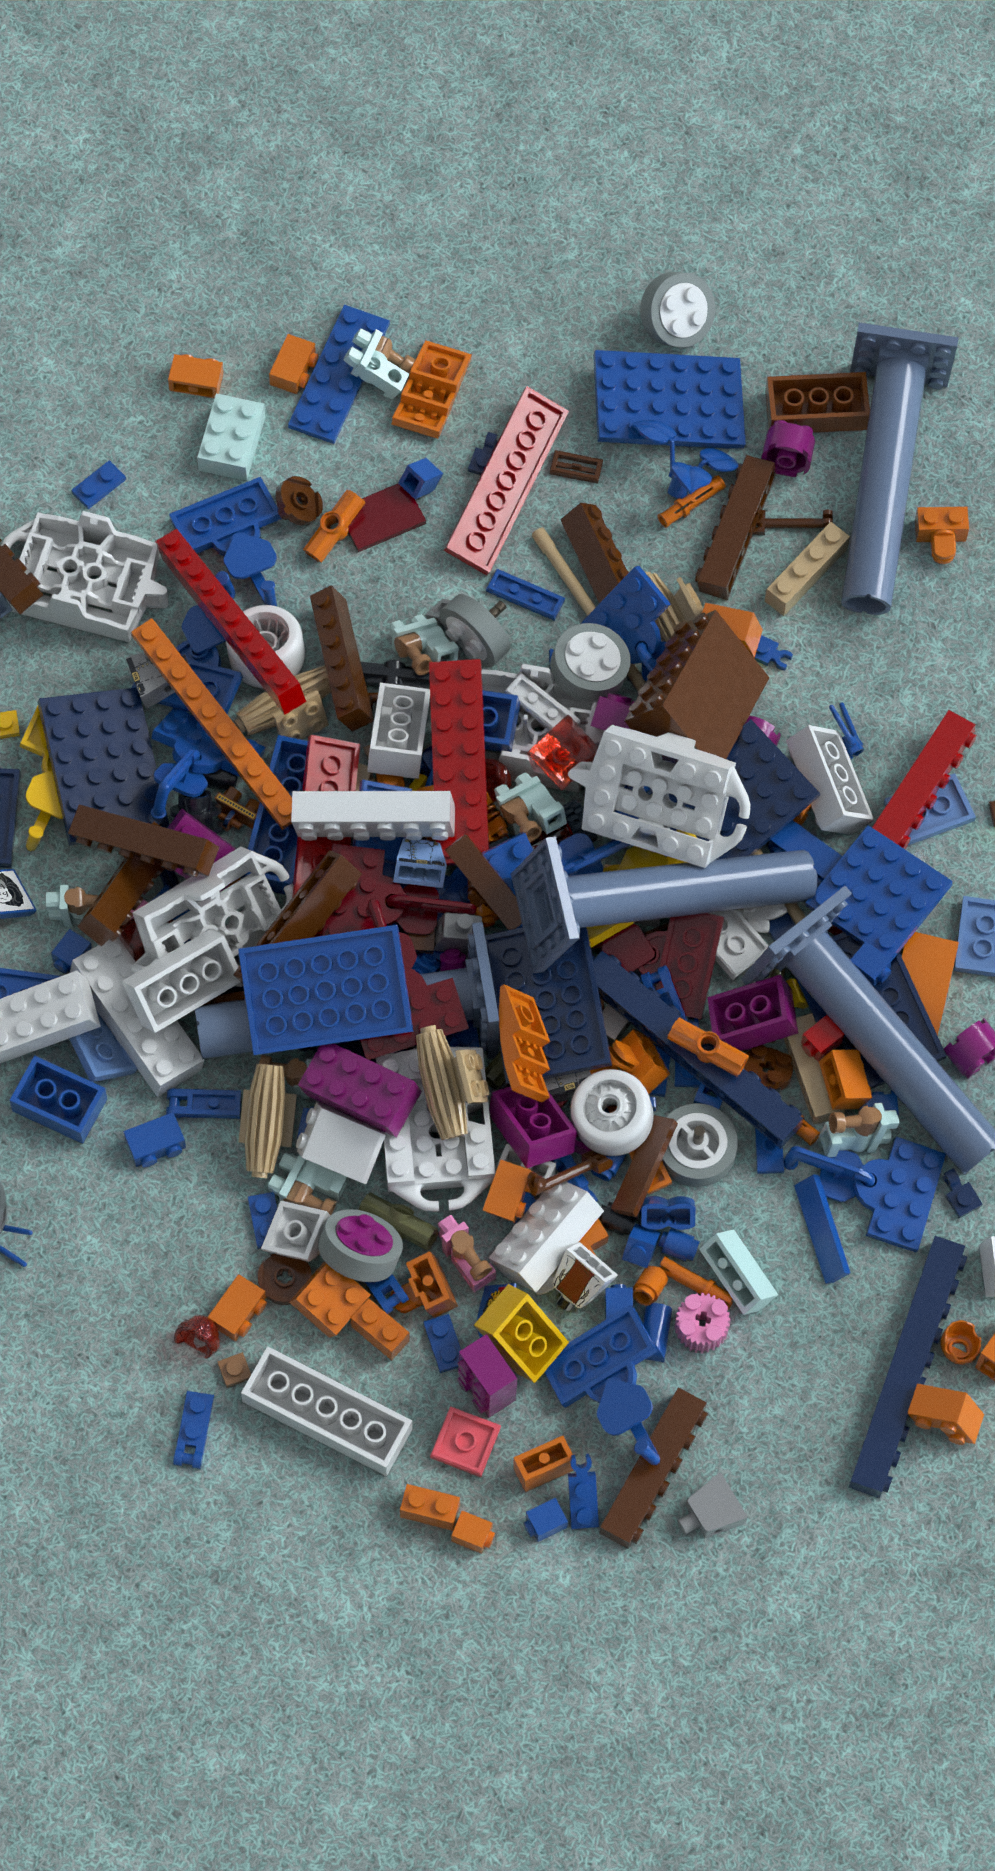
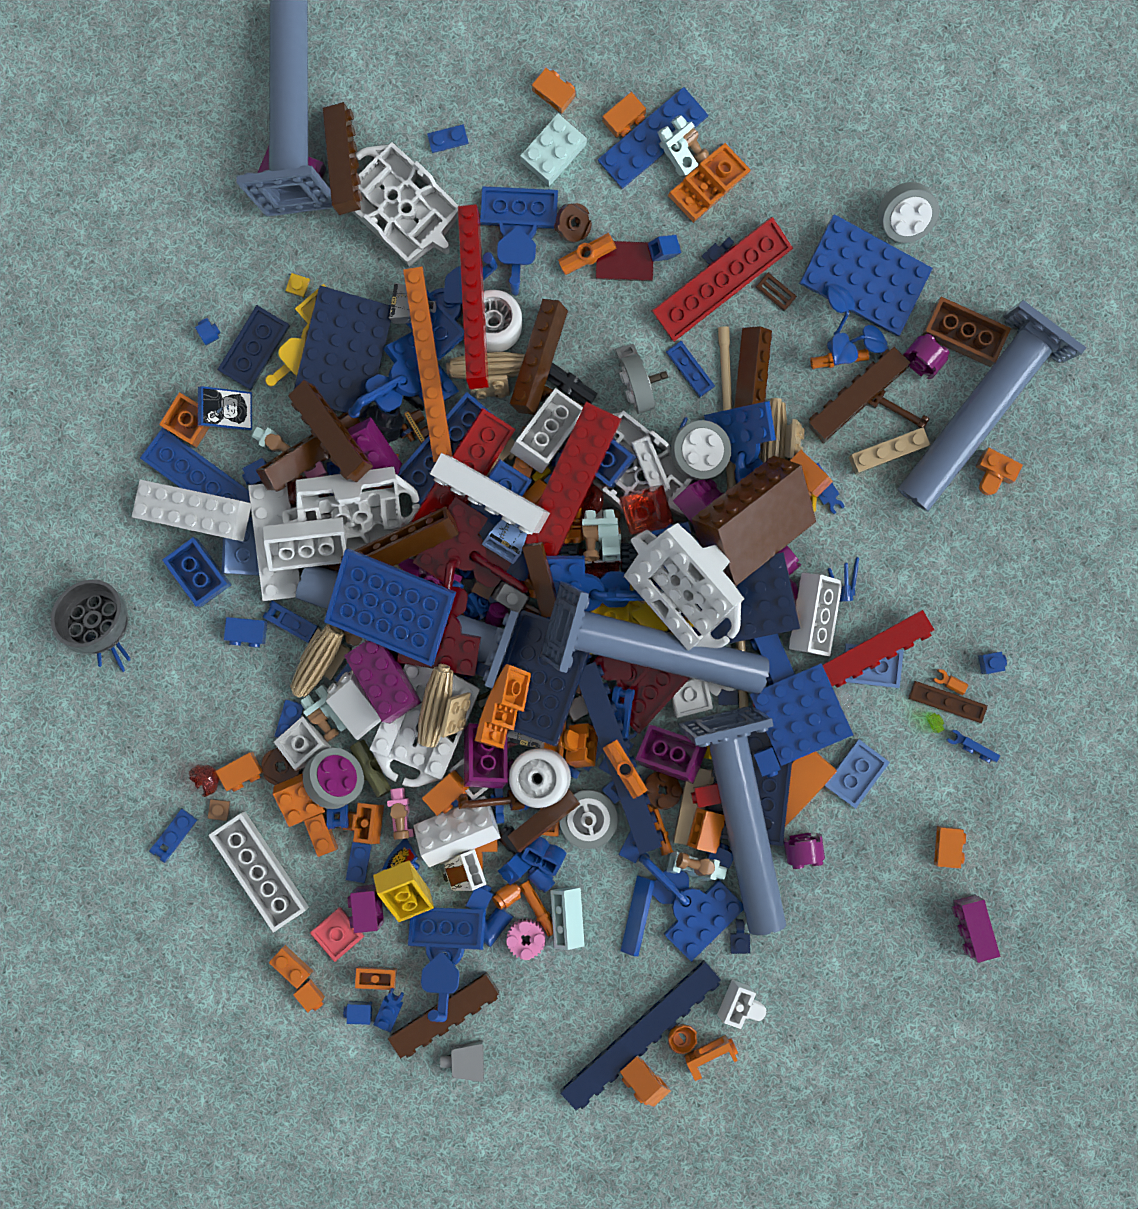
camera: 30 degrees right, 20 degrees up
(419, 638) = (601, 367): light aqua hips -> none

